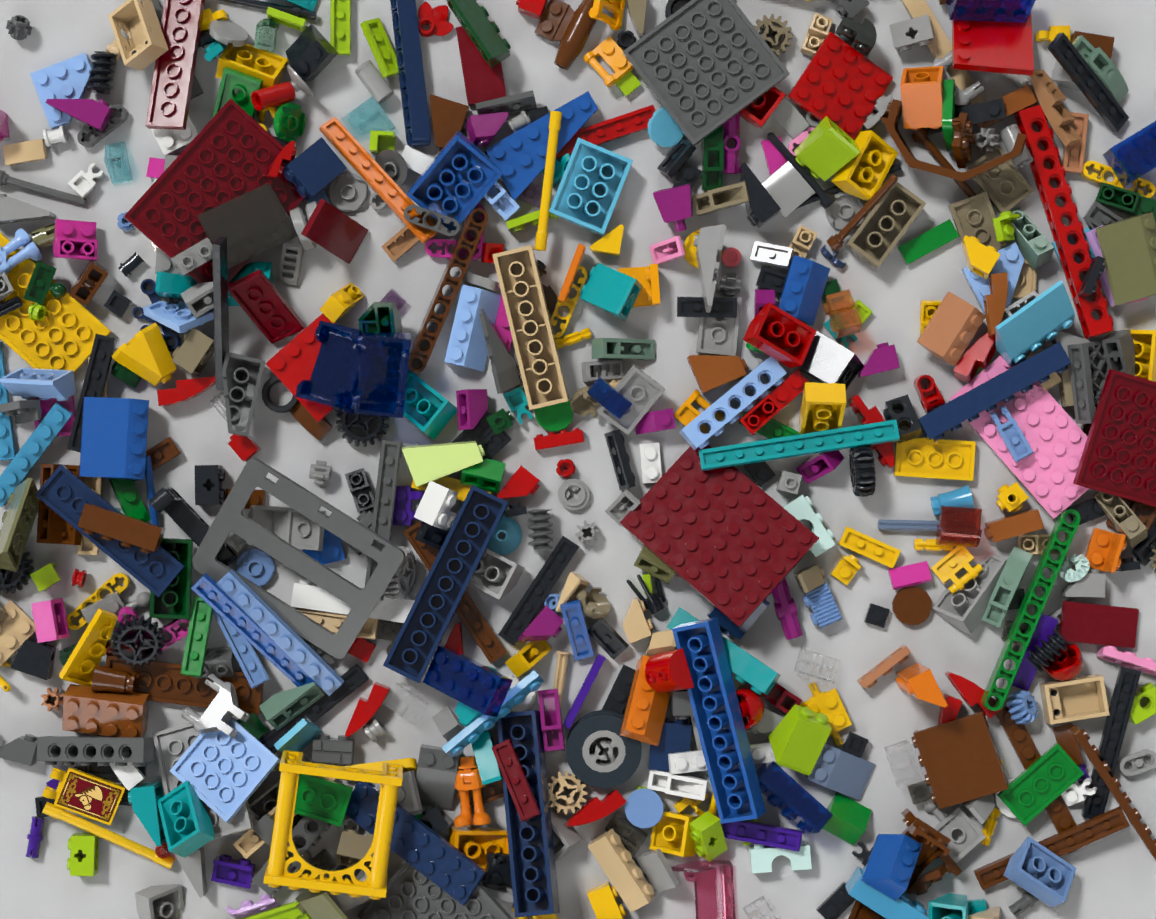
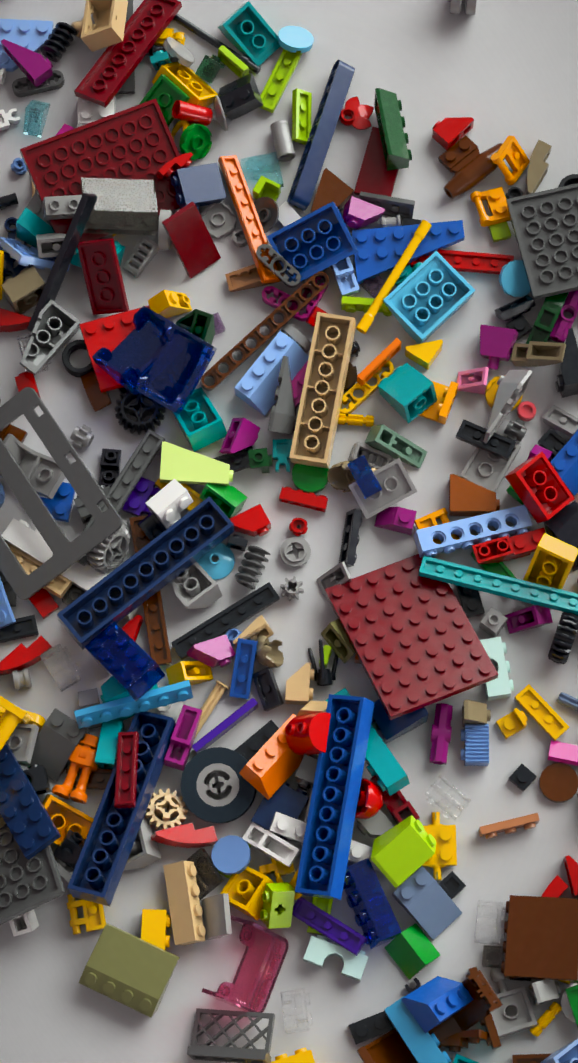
camera: 30 degrees right, 15 degrees down
(494, 443) = (245, 477): black plate -> none
(650, 462) = (376, 553): white plate -> none
(920, 683) = (534, 848): orange slope -> none

